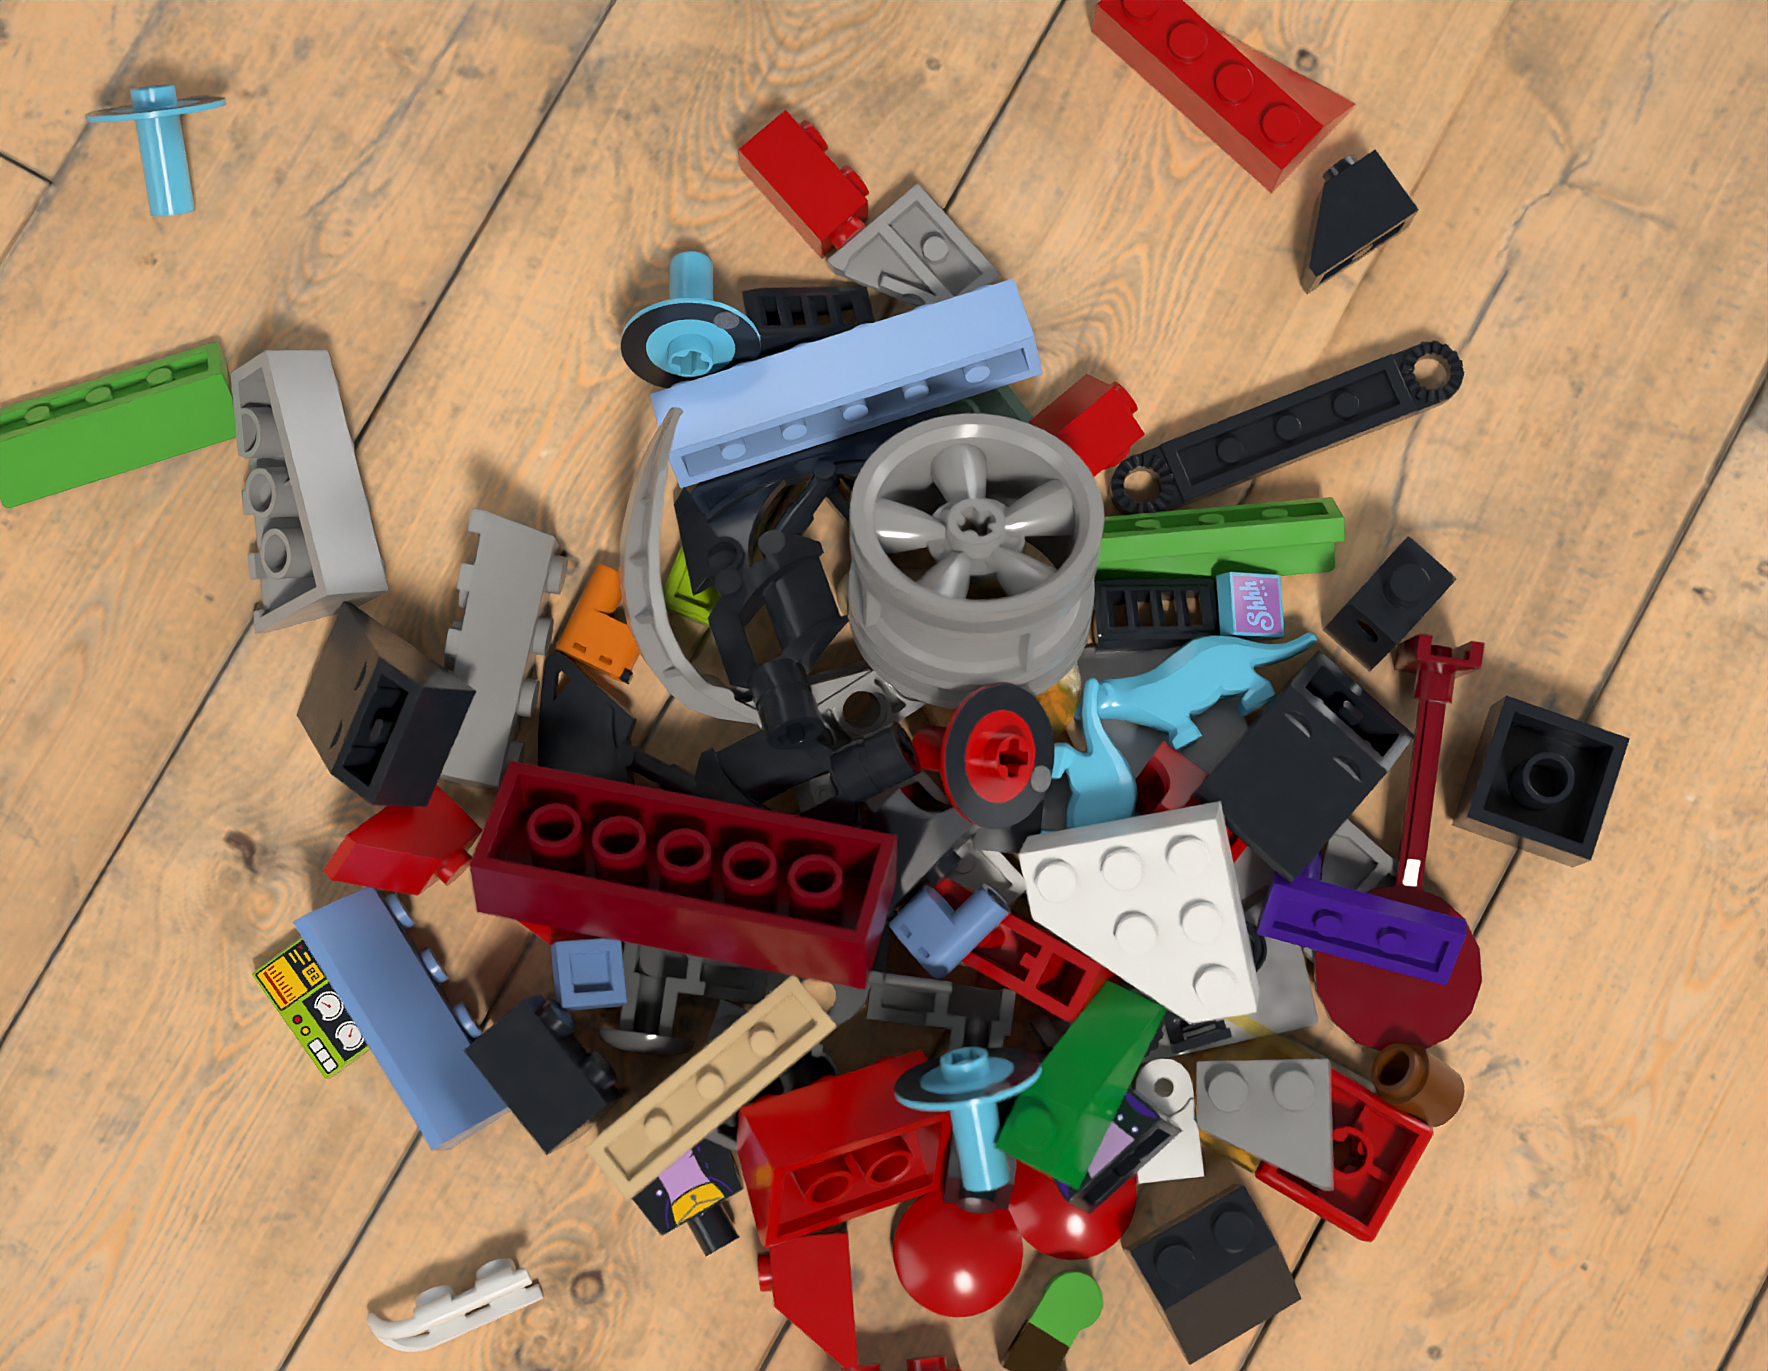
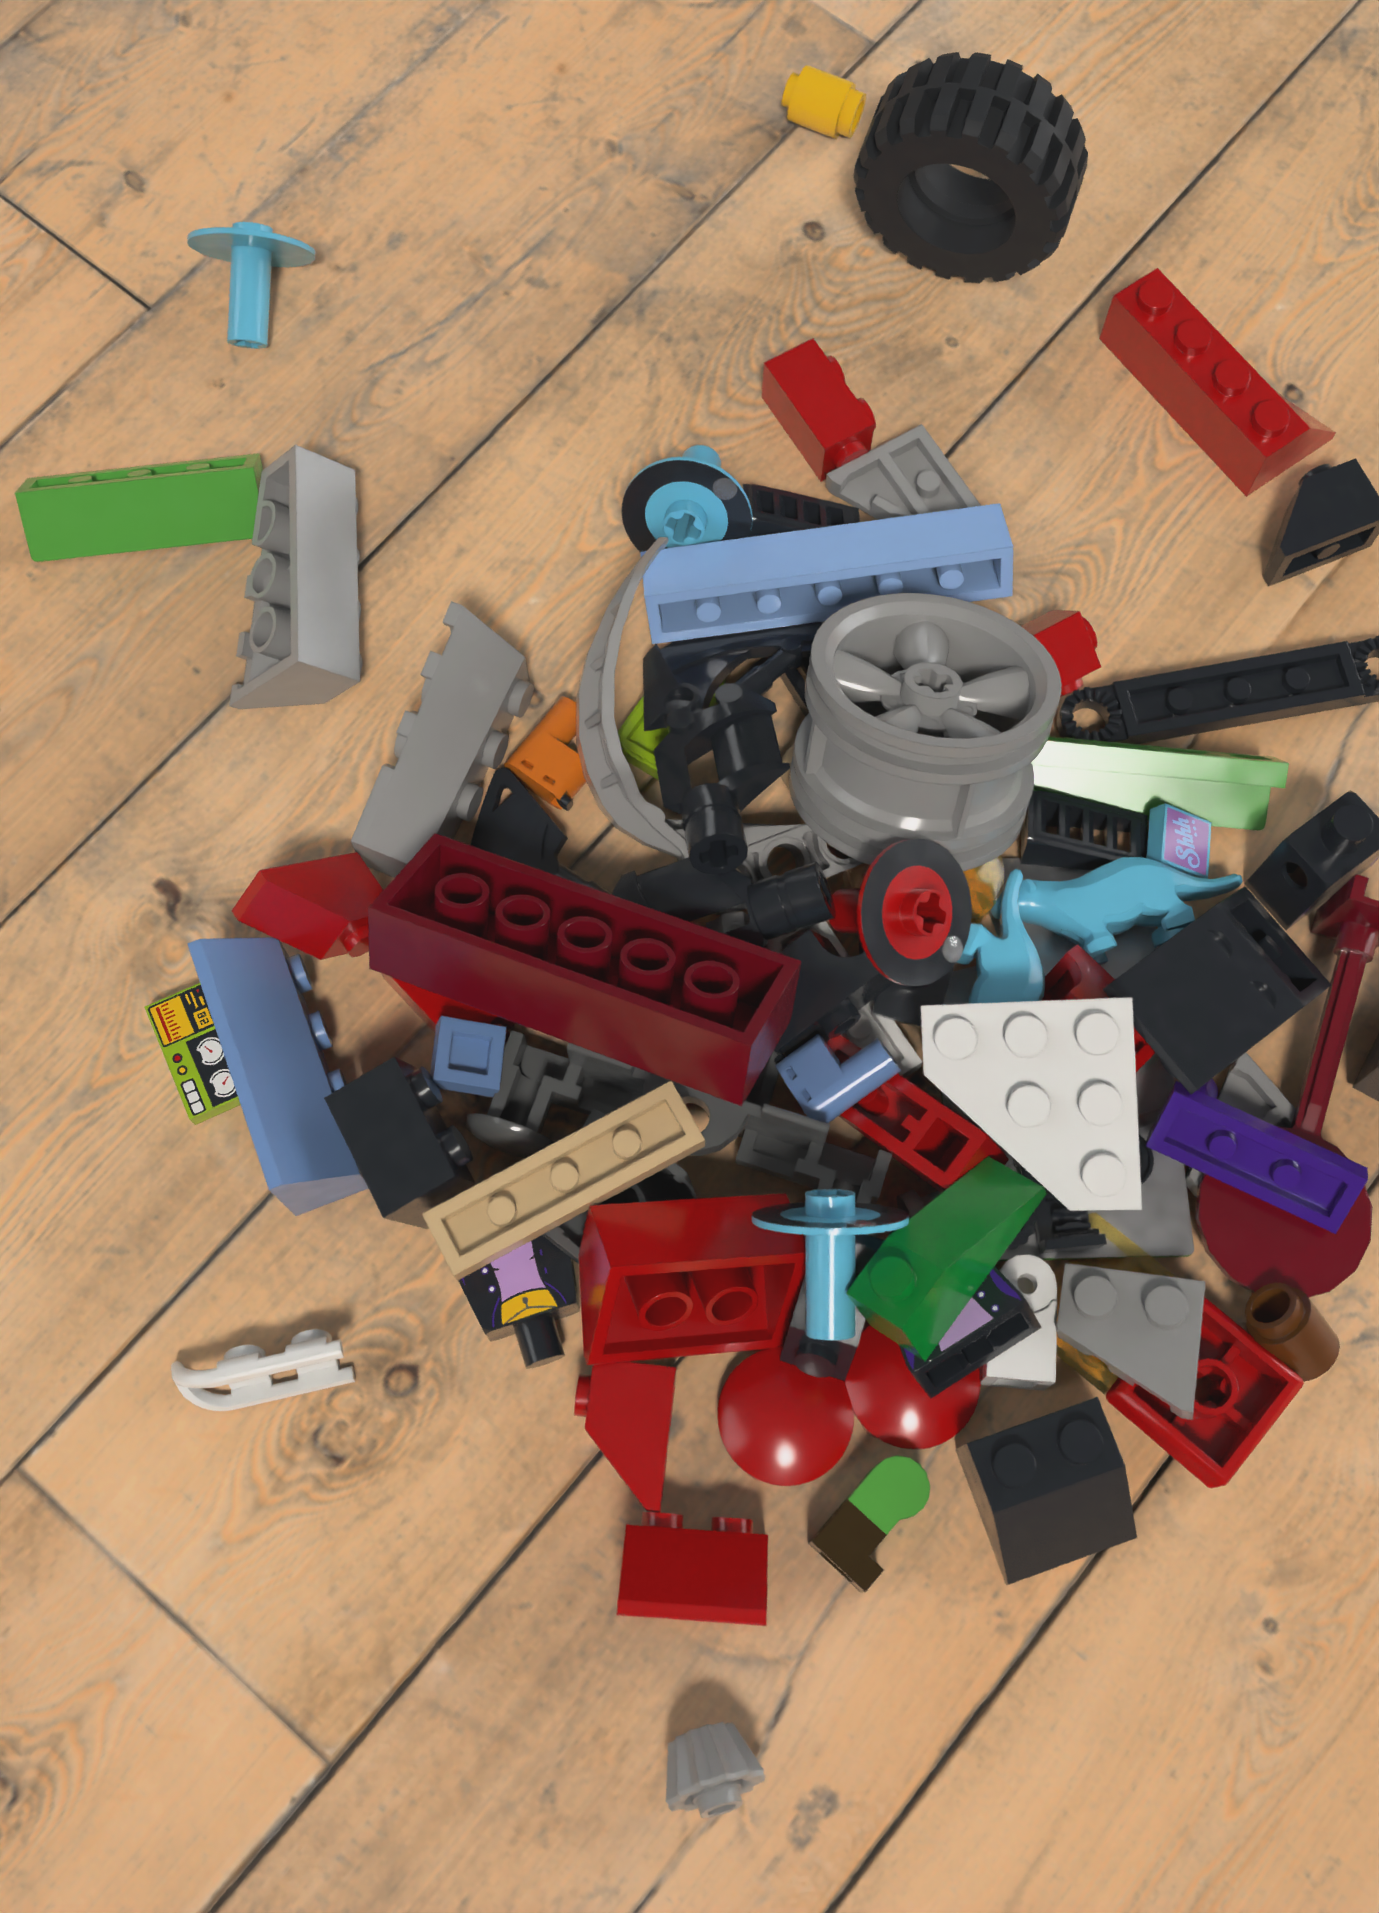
camera: 15 degrees right, 10 degrees down
(382, 712) = (329, 779): black slope -> none

